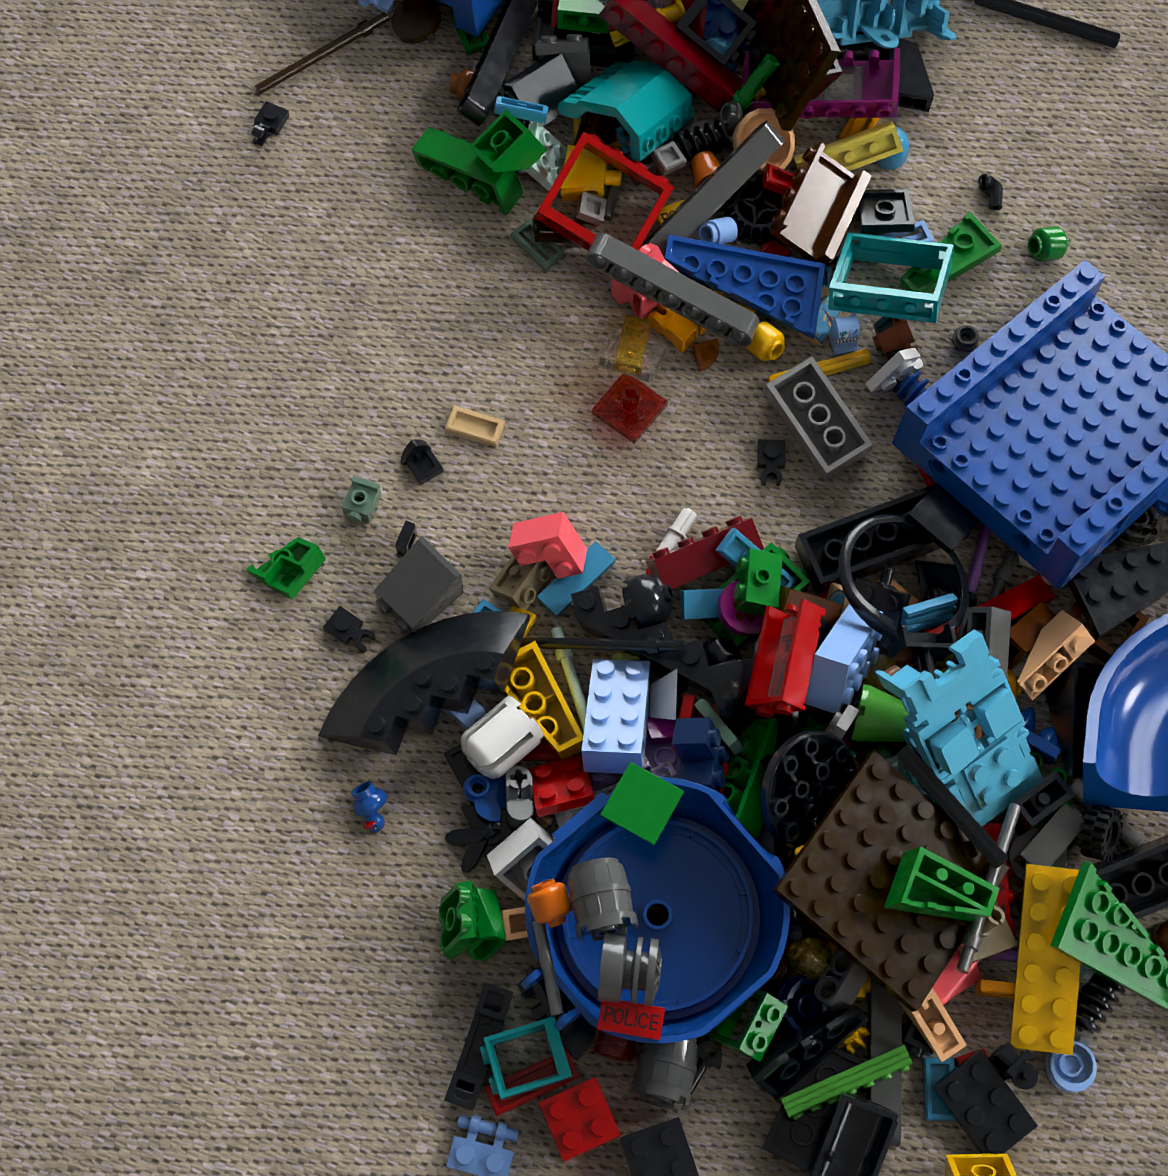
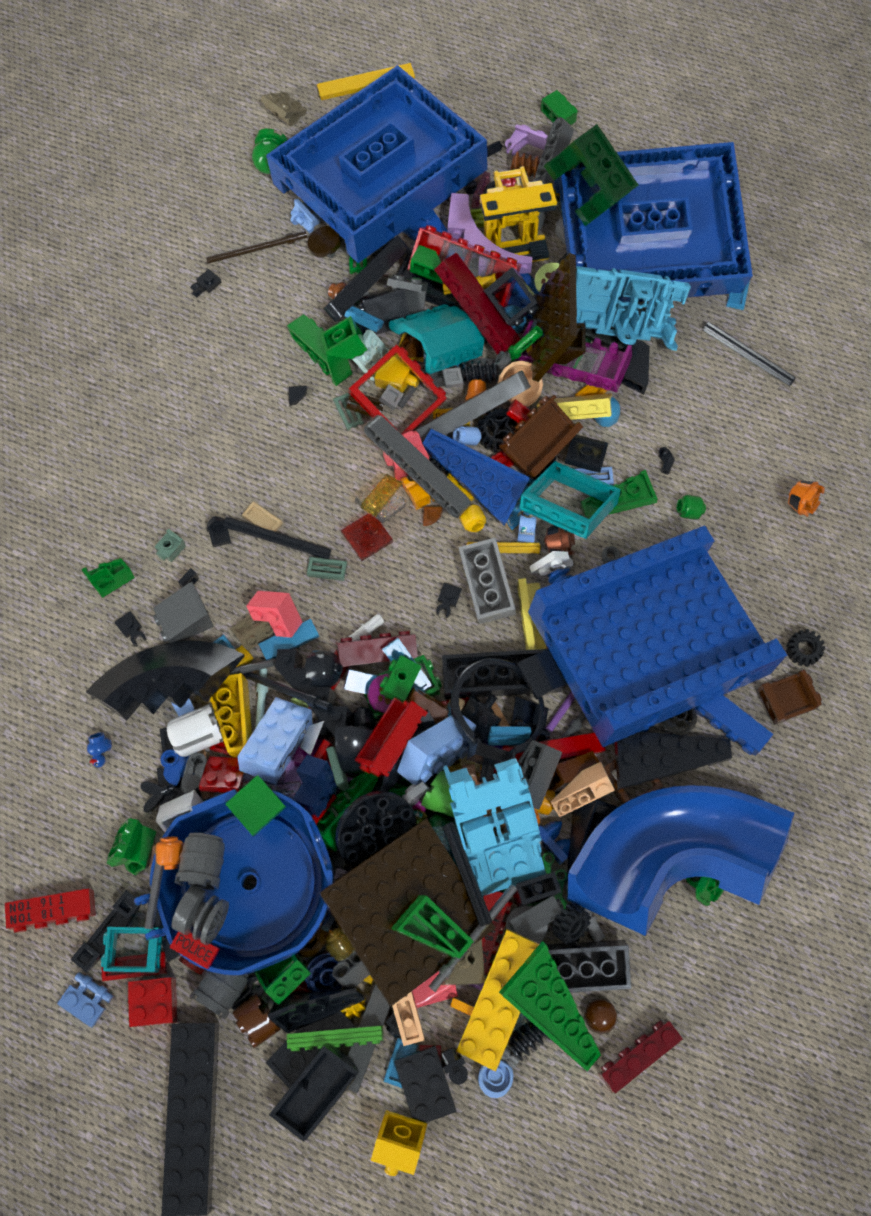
camera: 20 degrees right, 0 degrees up
(386, 1044) = (50, 909): none -> red brick
(457, 241) = (296, 394): none -> black tile
(507, 445) = (277, 538): none -> black axle
(548, 626) = (254, 666): none -> dark grey piece
(595, 476) = (341, 577): none -> sand green tile
(731, 1095) = (253, 1018): none -> reddish brown brick
(880, 430) = (531, 634): none -> light yellow panel

